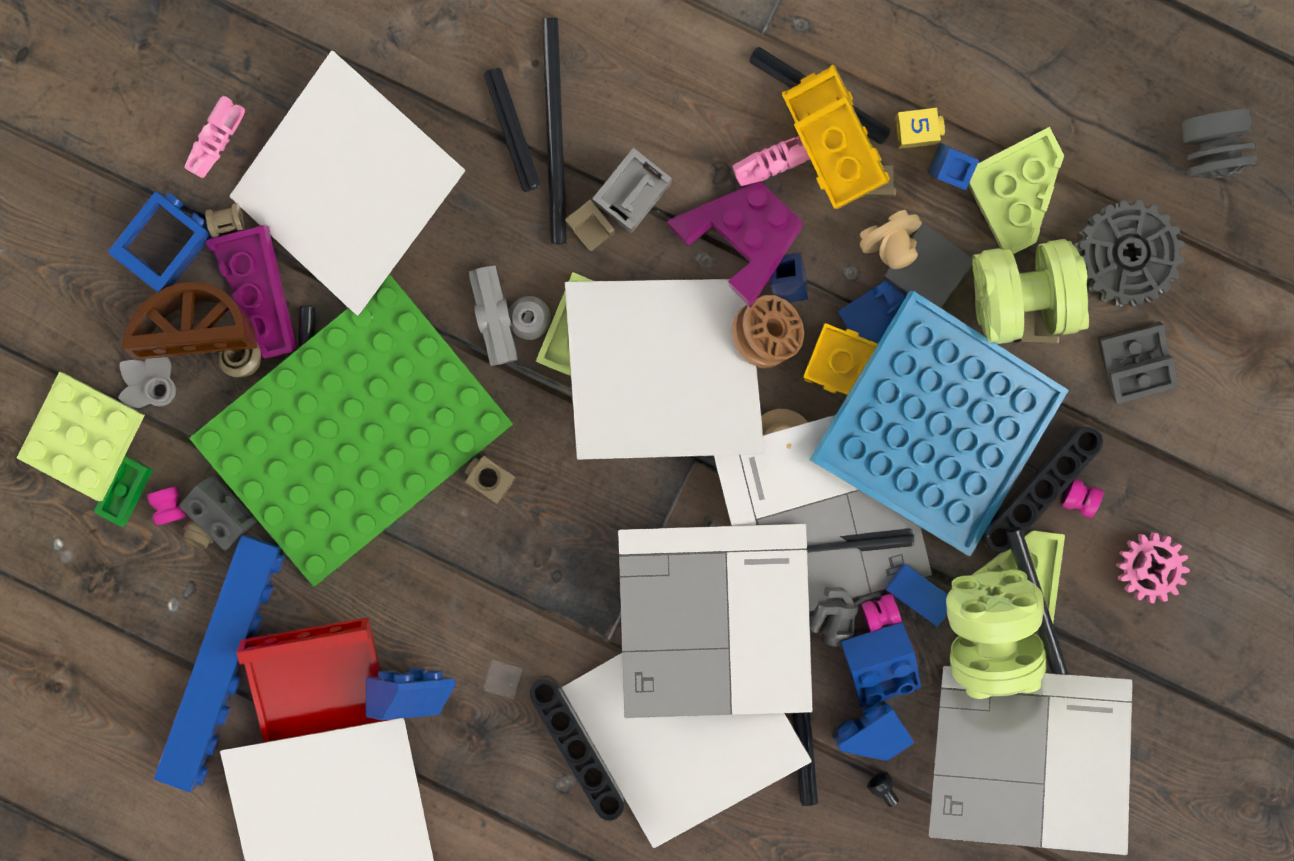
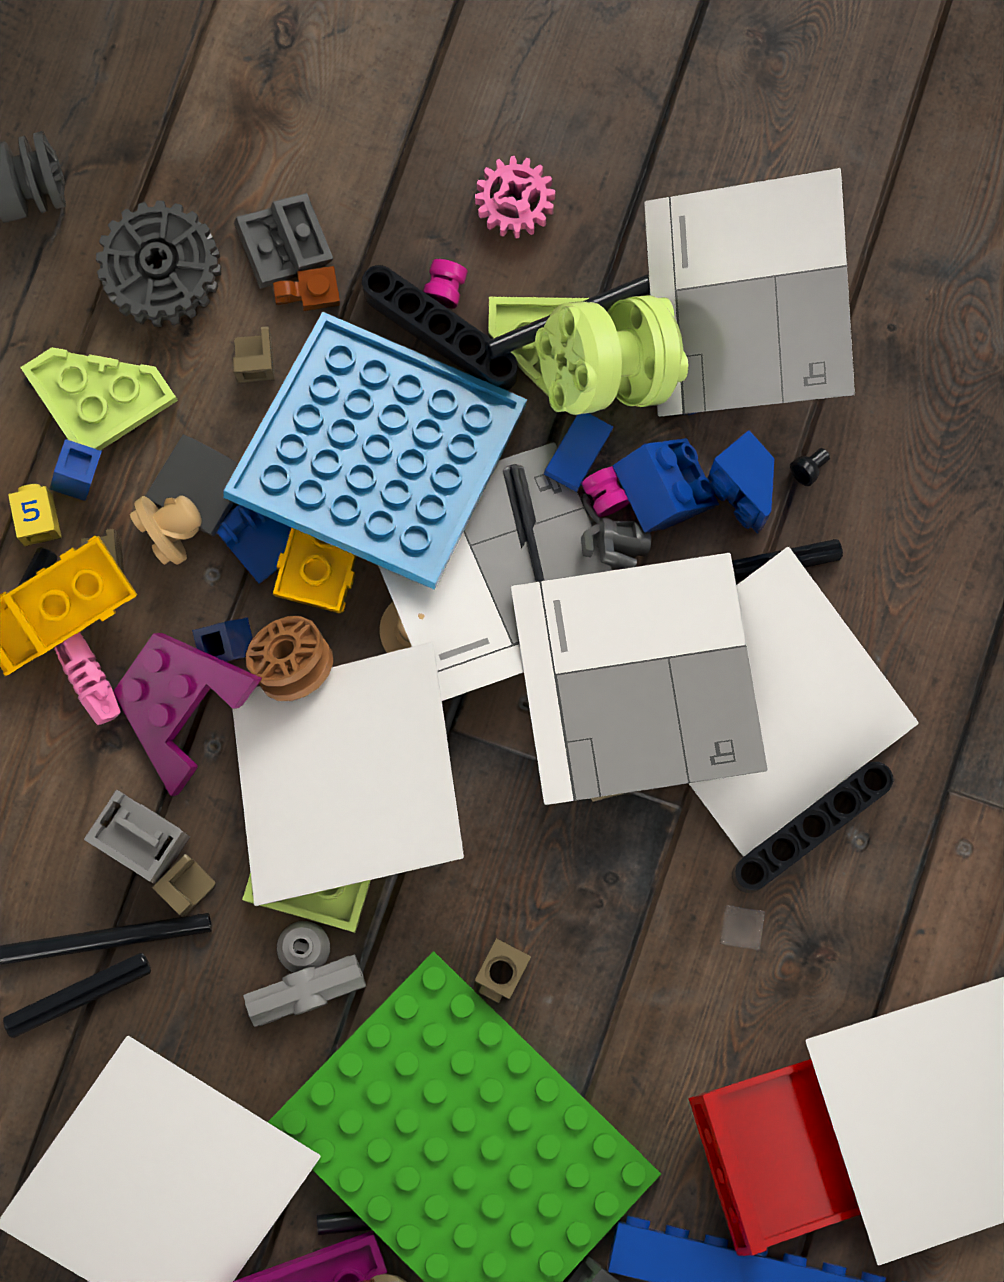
camera: 100 degrees left, 10 degrees down
(407, 693) = (775, 1038): blue slope -> none
(1054, 288) = (205, 336): yellowish green piece -> none
(1091, 386) = (315, 289): none -> dark orange plate

